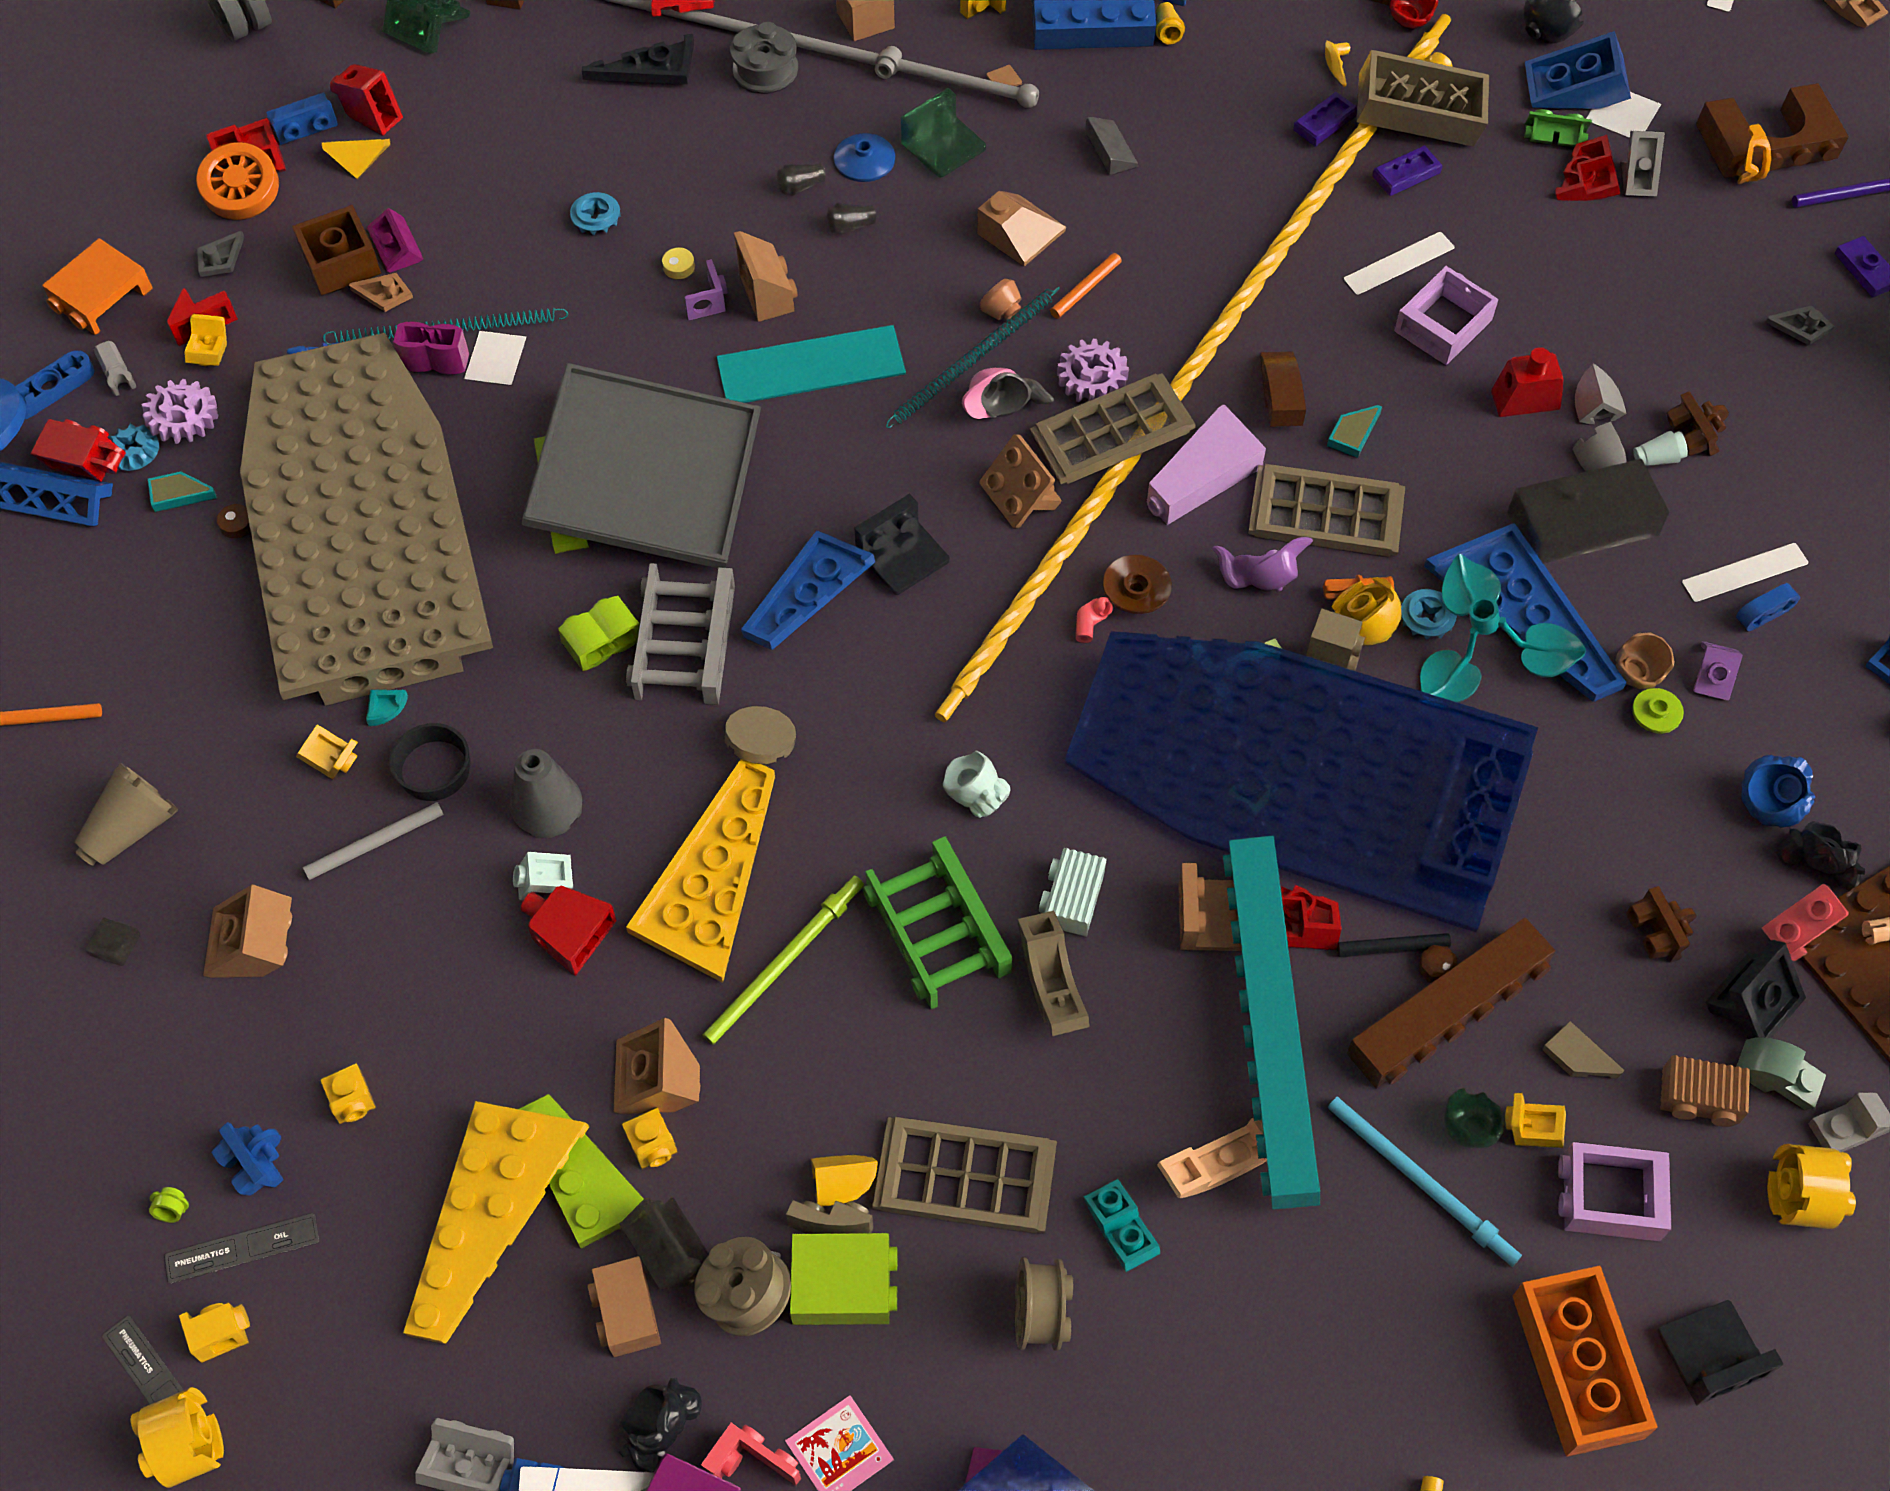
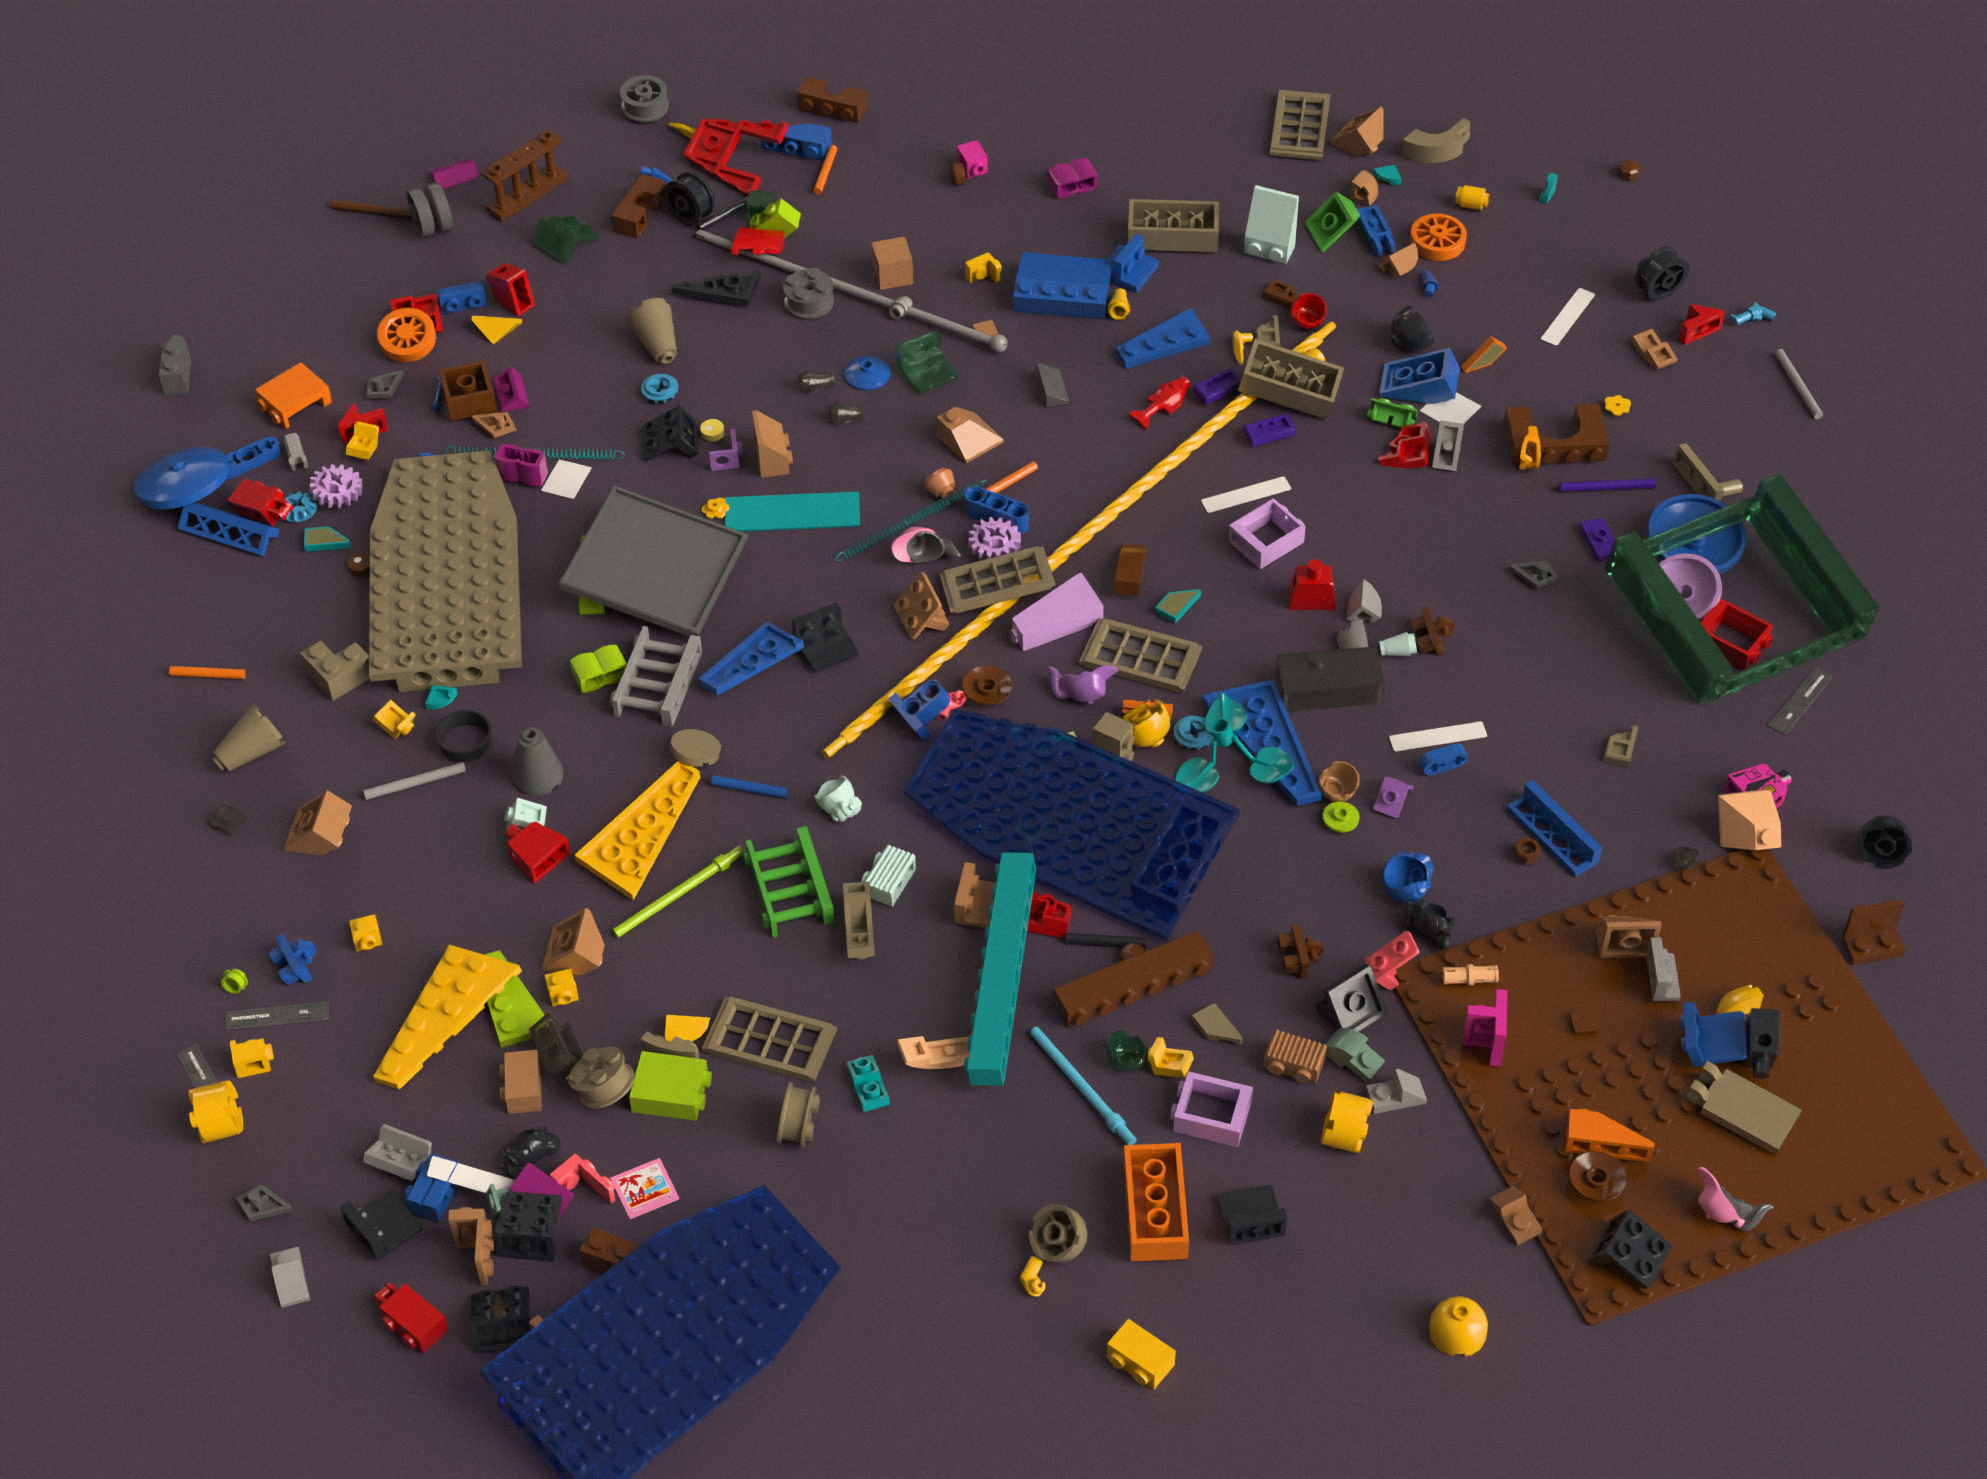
camera: 10 degrees right, 10 degrees down
(157, 10) = (370, 208): none -> reddish brown bar
(233, 691) = (336, 672): none -> dark tan brick
(296, 275) = (436, 405): none -> blue hinge
(572, 131) = (654, 328): none -> dark tan cone
(621, 274) = (670, 430): none -> black bracket
(707, 374) = (715, 508): none -> yellow plant
(852, 781) = (749, 786): none -> blue bar
(1057, 620) = (926, 705): none -> blue tile
(1070, 322) = (982, 504): none -> blue beam
(1240, 63) = (1168, 338): none -> blue wing
(1262, 143) = (1167, 398): none -> red animal
(1366, 39) = (1269, 332): none -> dark tan tile
(1462, 1441) = (1058, 1233): none -> dark tan cylinder
(1649, 35) = (1484, 355): none -> tile
(1832, 81) = (1617, 405): none -> yellow plant

